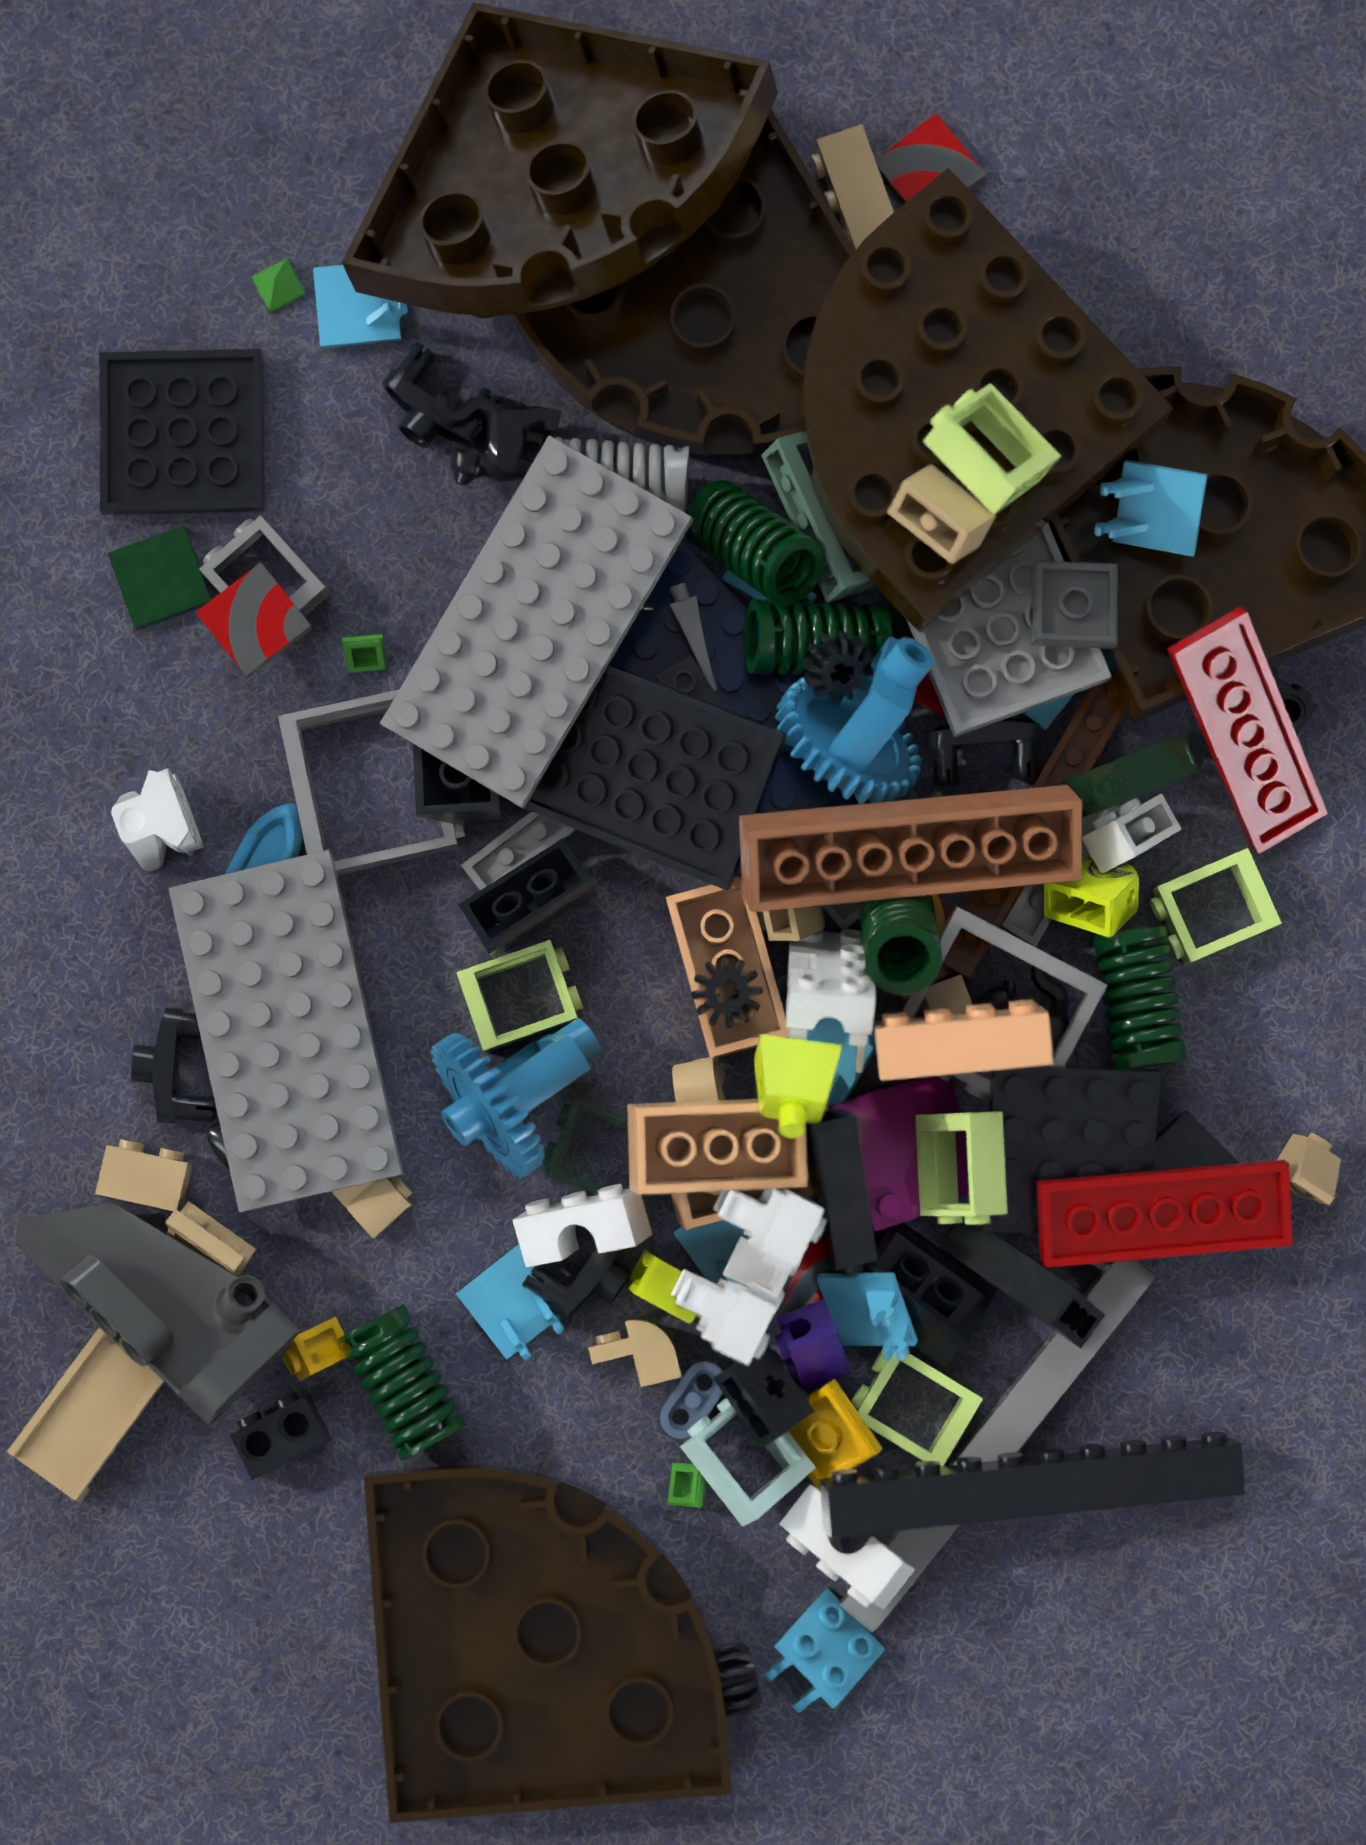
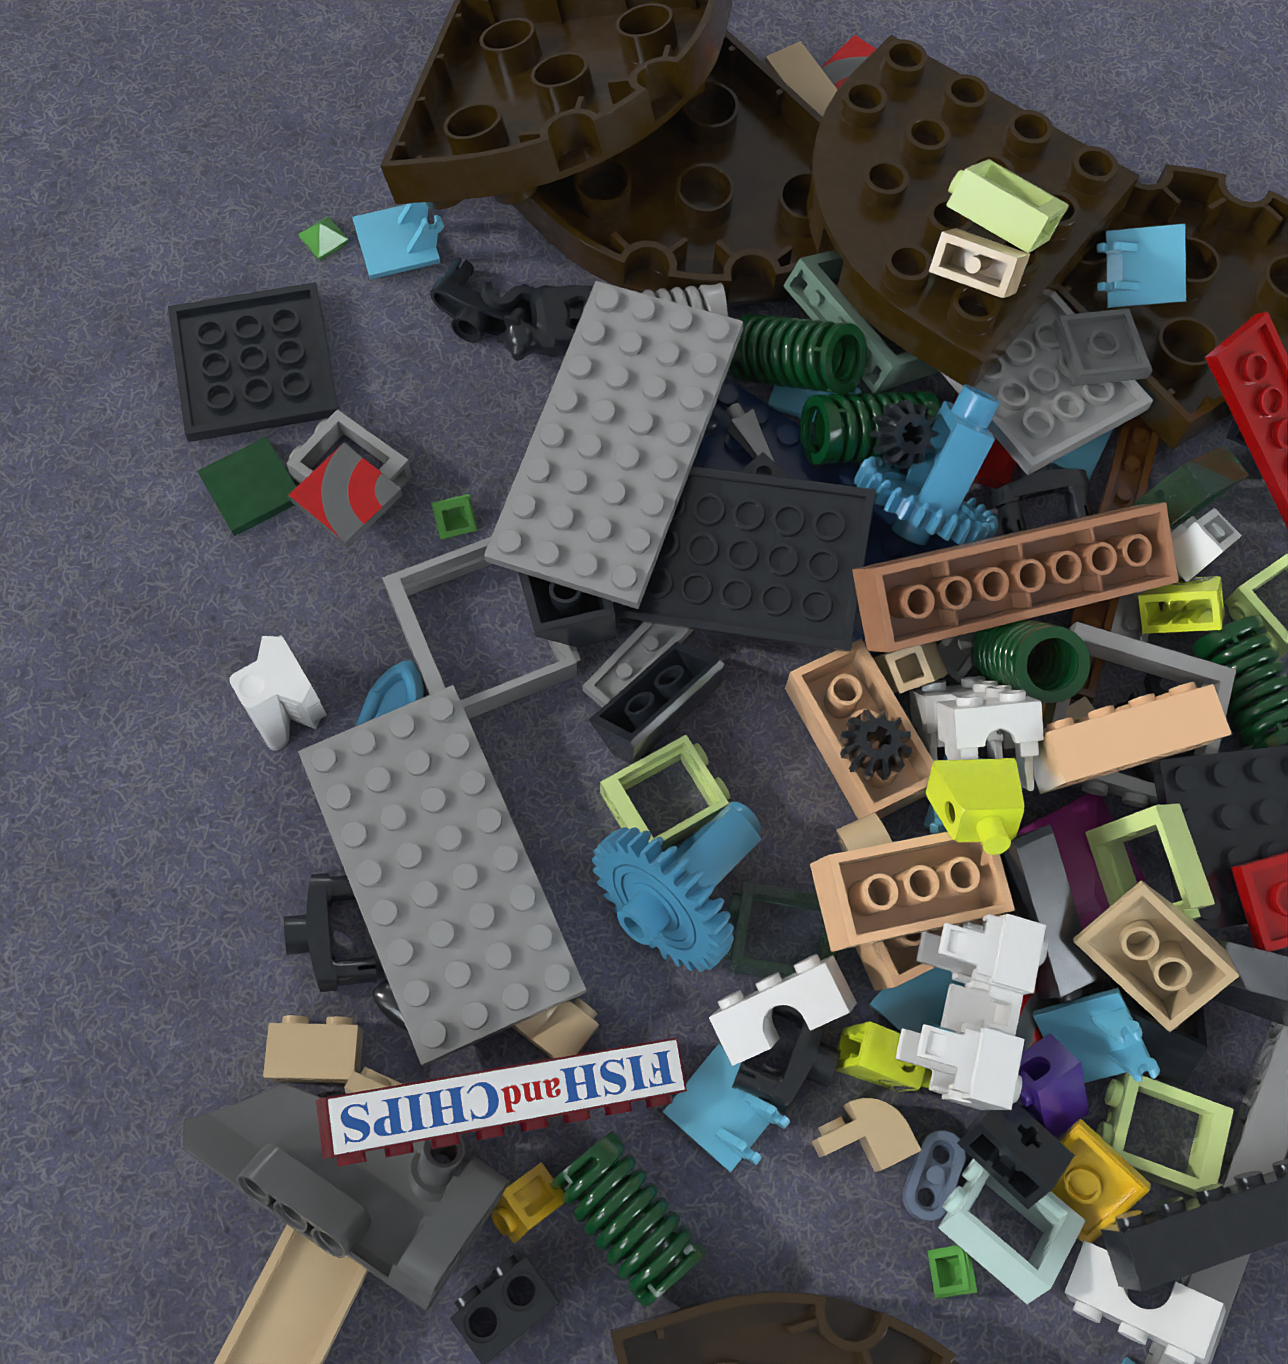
camera: 20 degrees left, 15 degrees down
(306, 1259) = (498, 1097): none -> brick
(935, 1252) = (1158, 955): none -> tan slope

